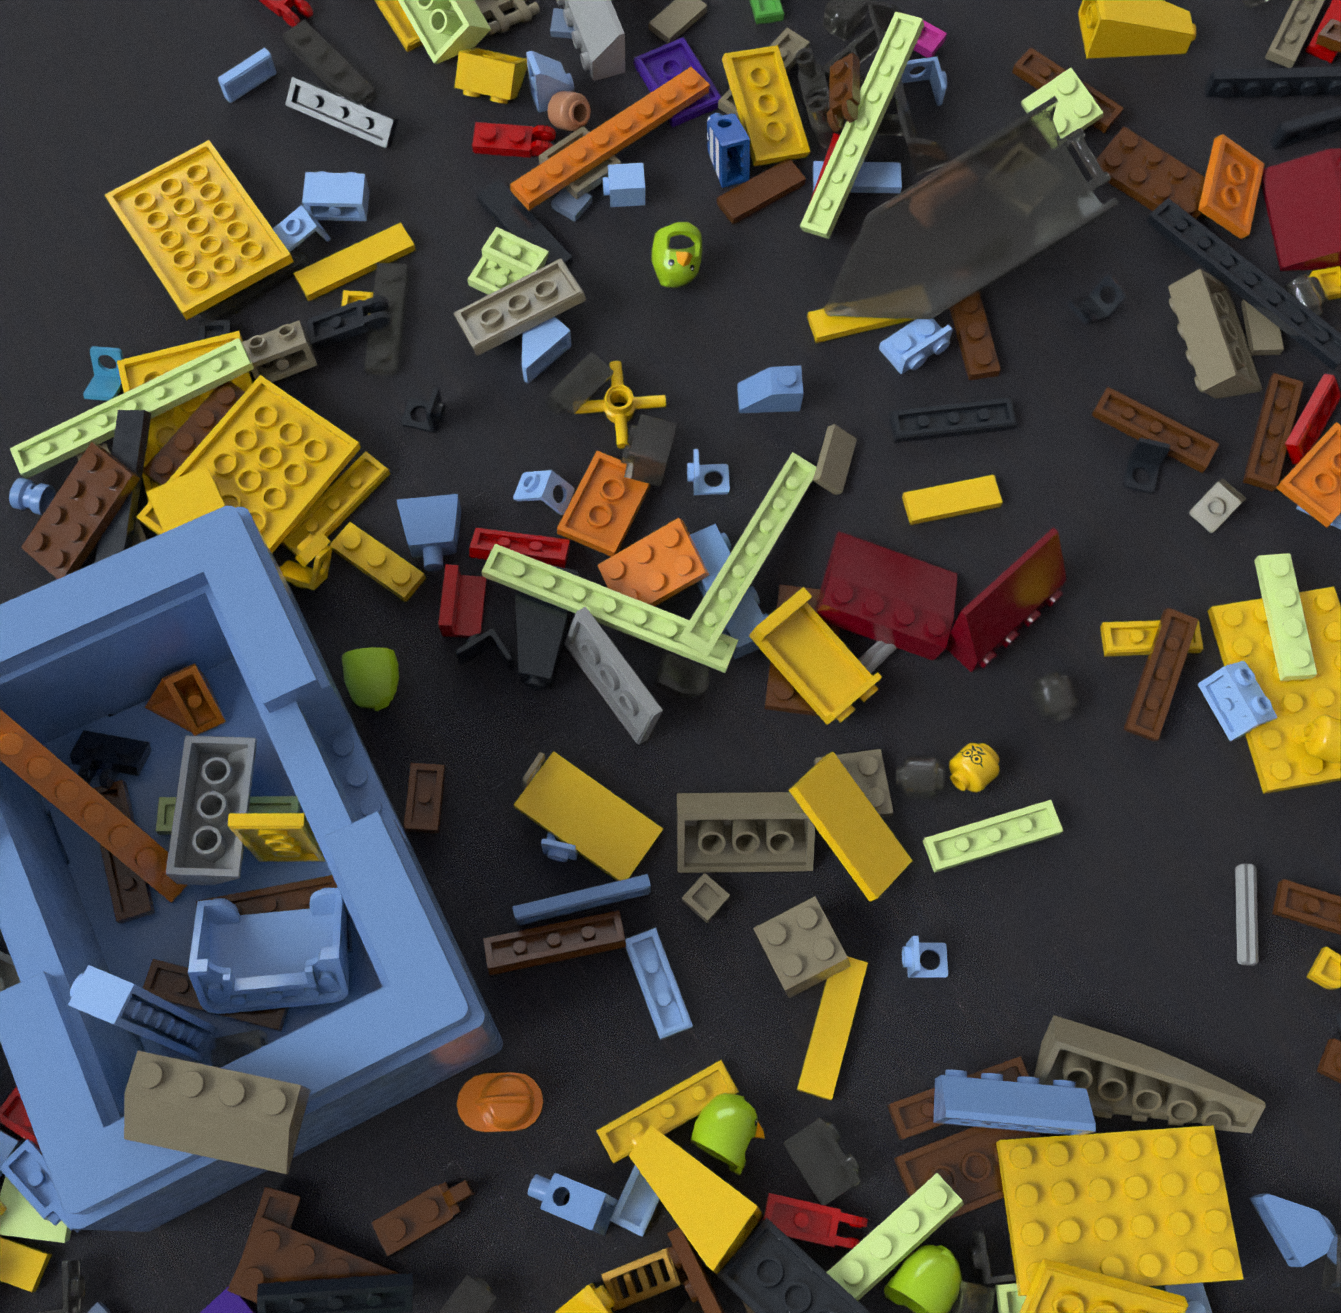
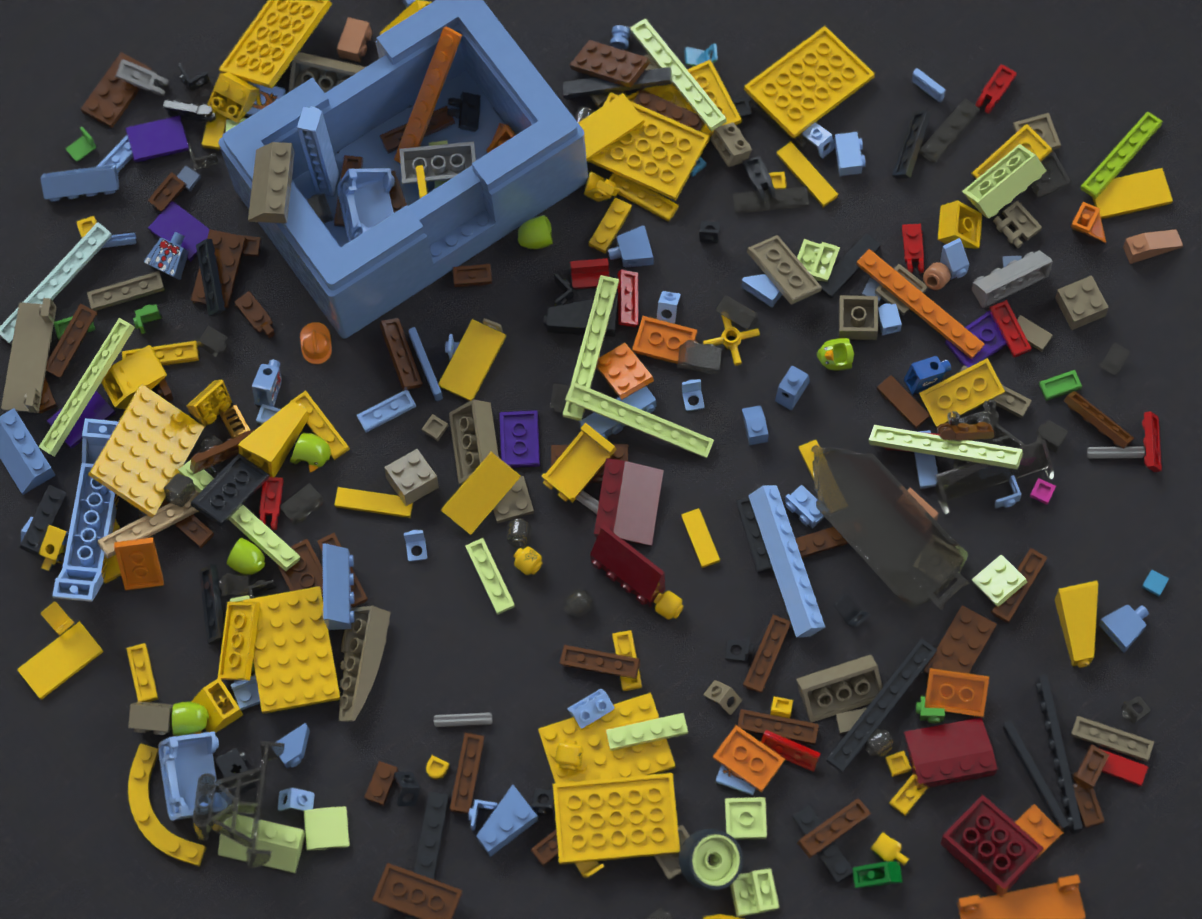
camera: 90 degrees right, 0 degrees up
(612, 676) = (550, 358): light grey tile -> none
(619, 220) = (858, 317): none -> dark tan brick
(670, 35) = (1010, 328): none -> red tile
(720, 326) = (794, 385): none -> medium blue torso
(743, 757) = (520, 438): none -> dark purple tile
(834, 459) = (714, 465): dark tan tile -> none
(1010, 375) = (786, 561): none -> light blue brick
(1076, 555) = (668, 605): none -> yellow head
(1242, 422) = (781, 707): none -> yellow tile
(1255, 234) = (932, 715): none -> bright green bracket

